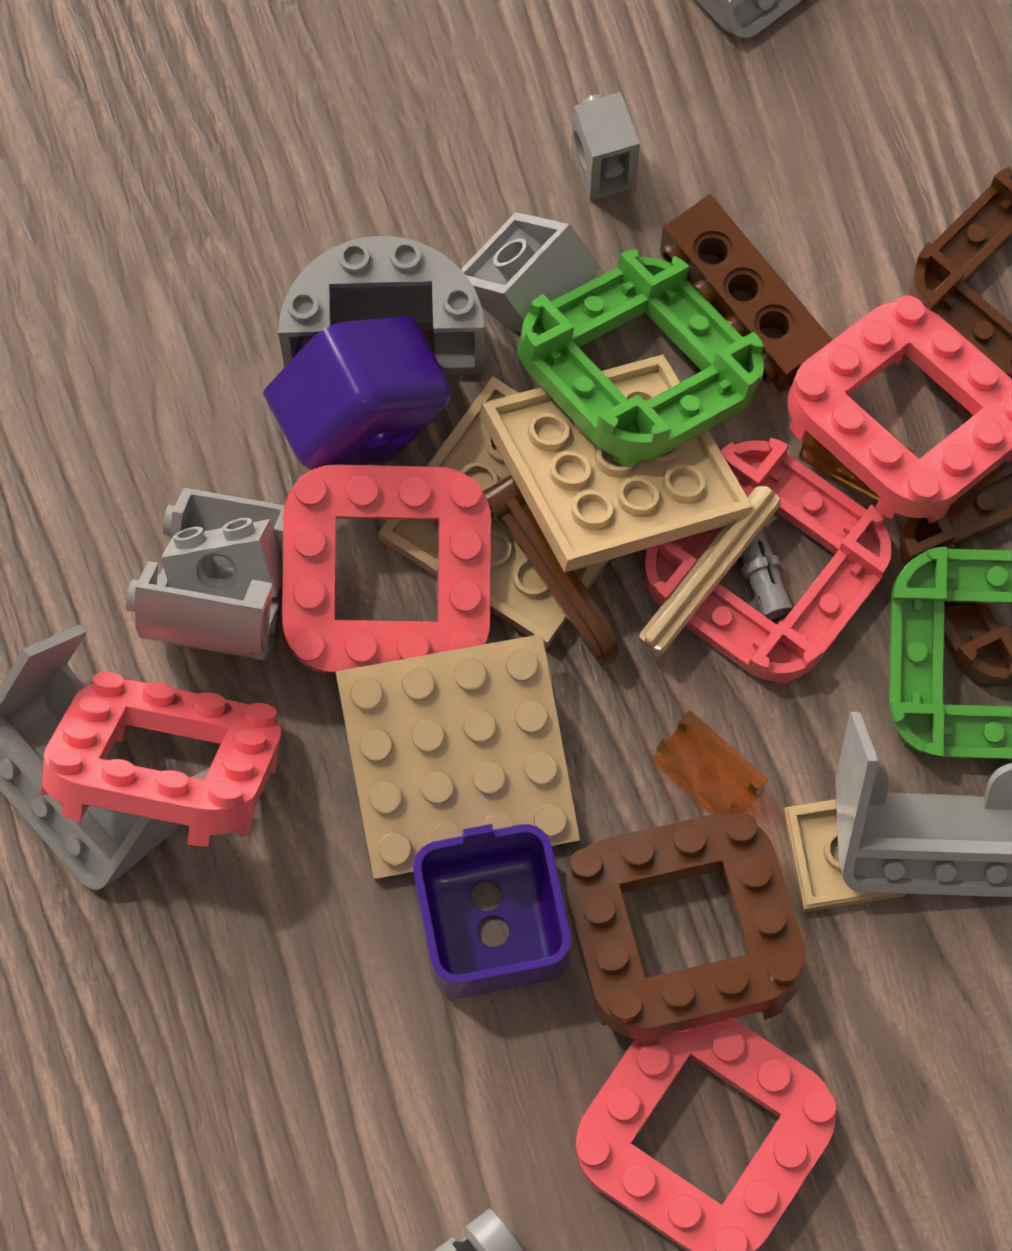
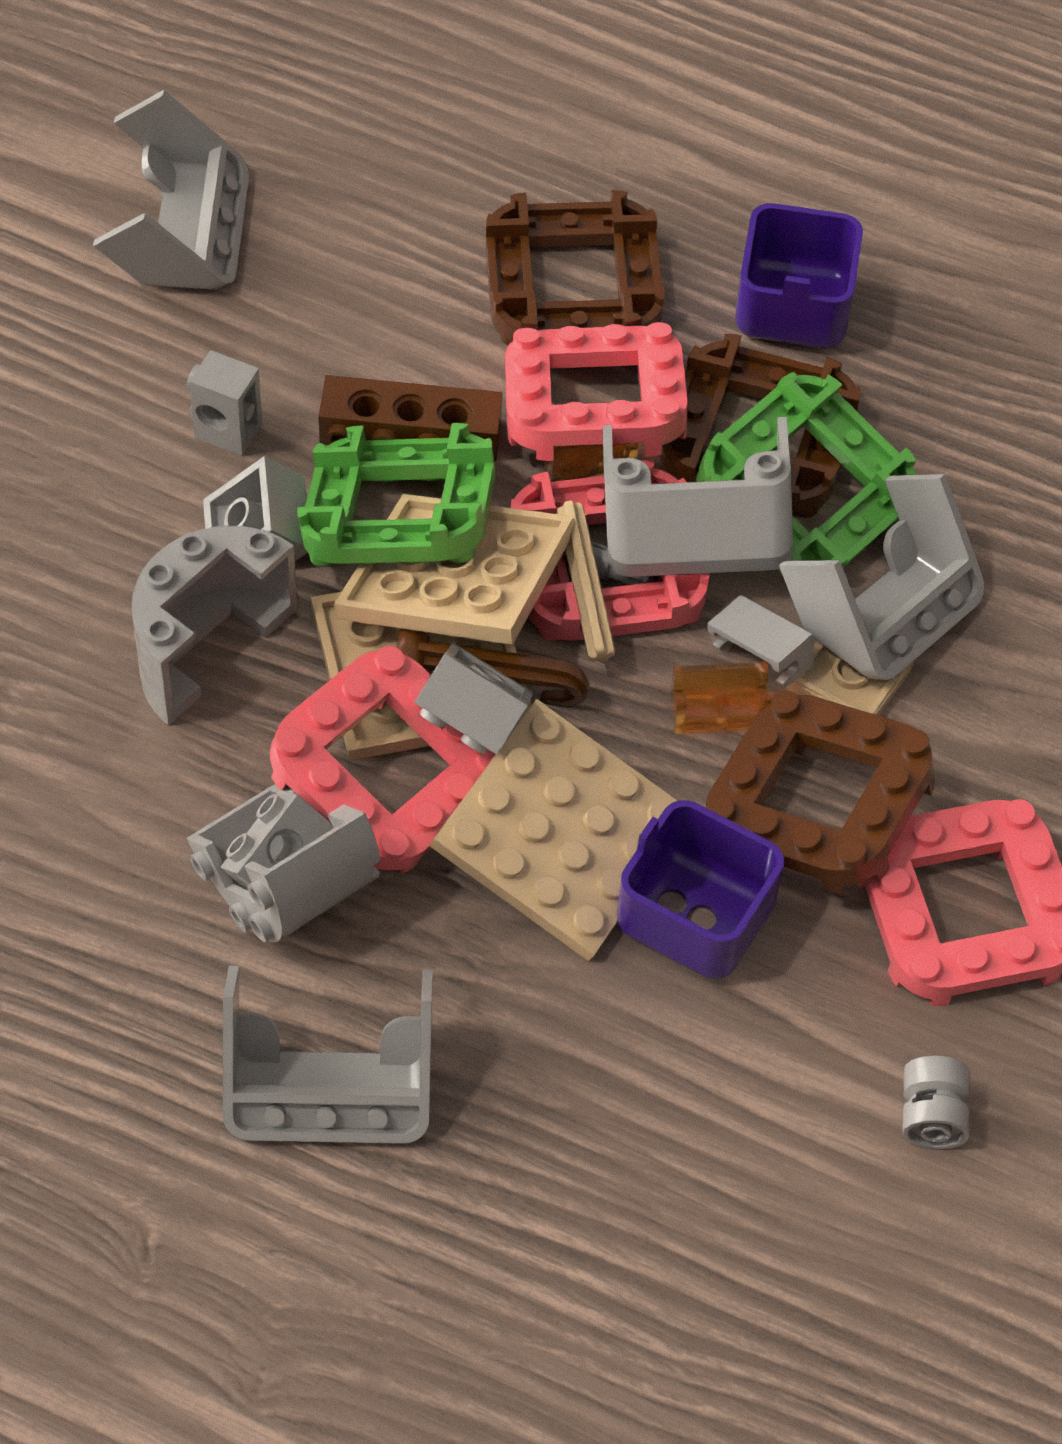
camera: 50 degrees left, 15 degrees down
(104, 711) = (446, 961): coral plate -> none
(358, 392) = (249, 665): dark purple piece -> none
(492, 586) = (473, 700): none -> light grey slope
(791, 757) = (764, 636): none -> light grey hinge
(839, 619) = (699, 523): none -> light grey windscreen

